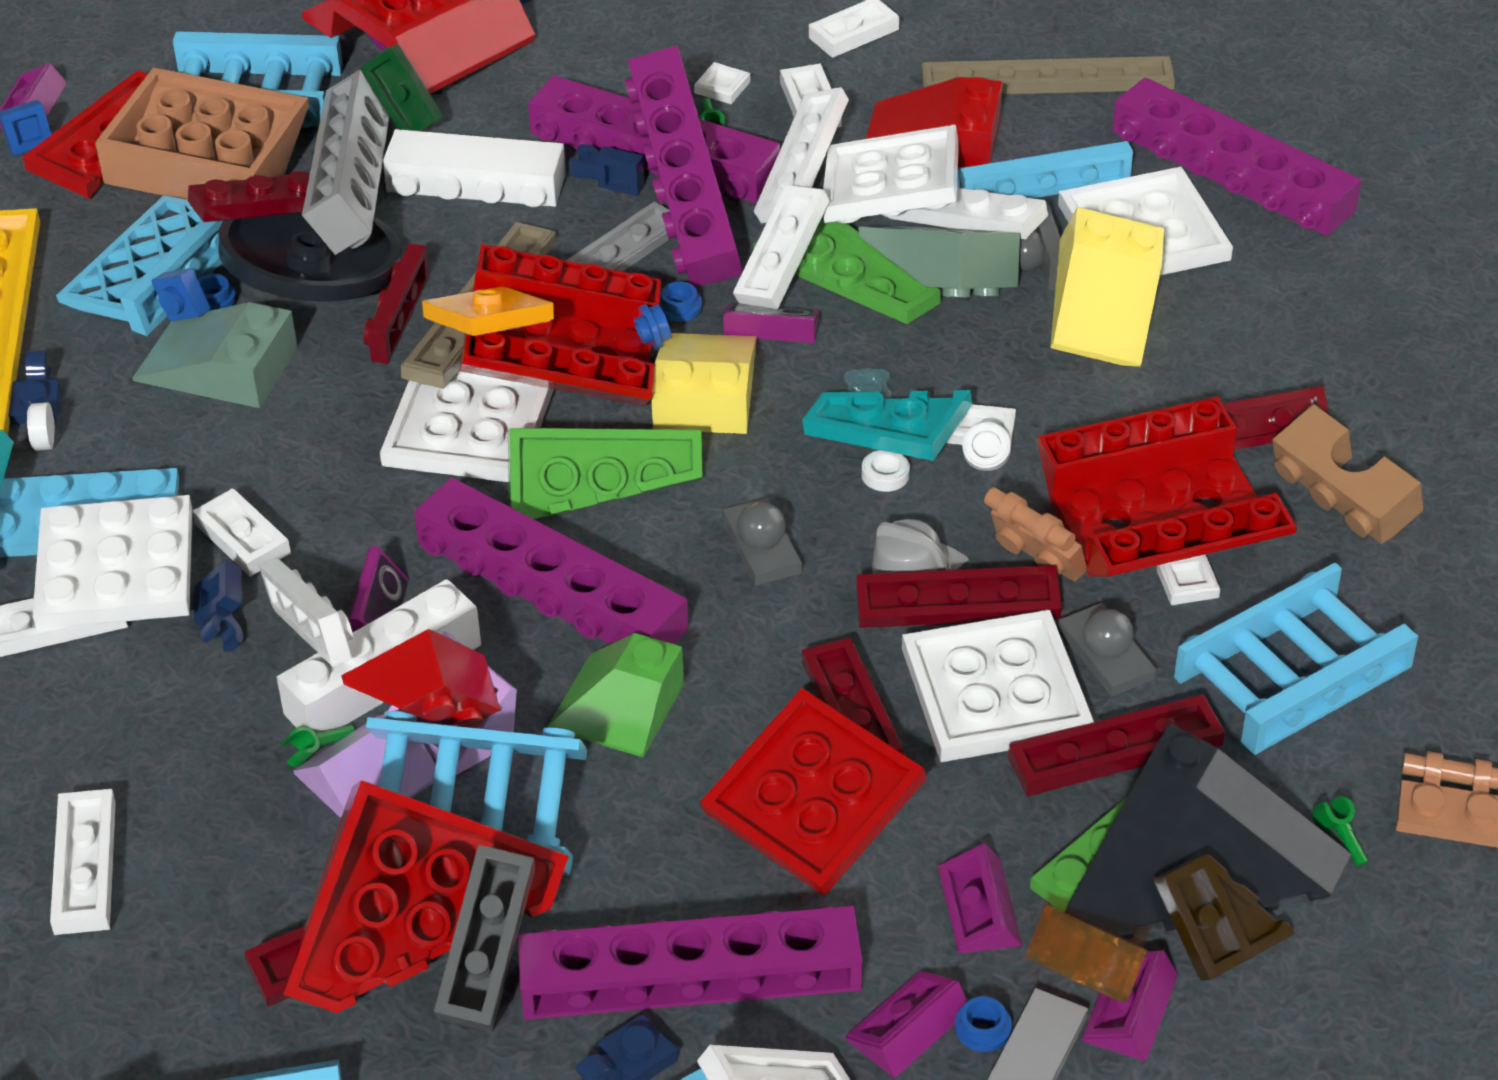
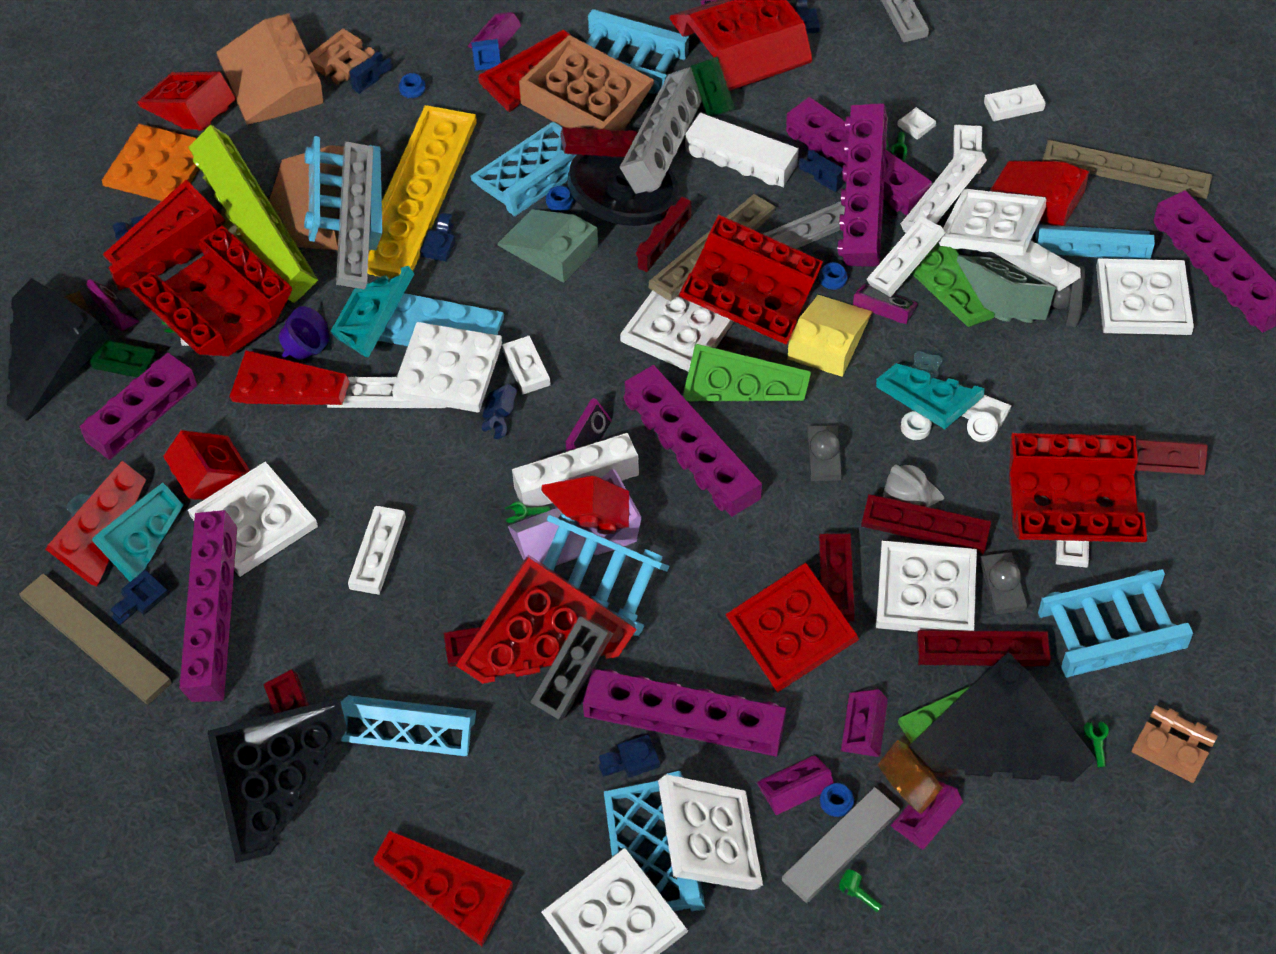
camera: 20 degrees right, 10 degrees up
(41, 426) = (435, 264): white tile -> none
(180, 294) = (538, 197): blue plate -> none
(307, 612) = (542, 432): white plate -> none
(488, 310) = (706, 263): light orange plate -> none
(623, 694) = (706, 532): bright green slope -> none
(652, 326) = (806, 292): blue plate -> none
(1035, 534) = (980, 492): nougat plate -> none
(1106, 287) = (1096, 339): light yellow slope -> none
(1217, 916) = (995, 777): dark brown wing -> none
(1371, 500) = (1208, 531): medium nougat arch -> none

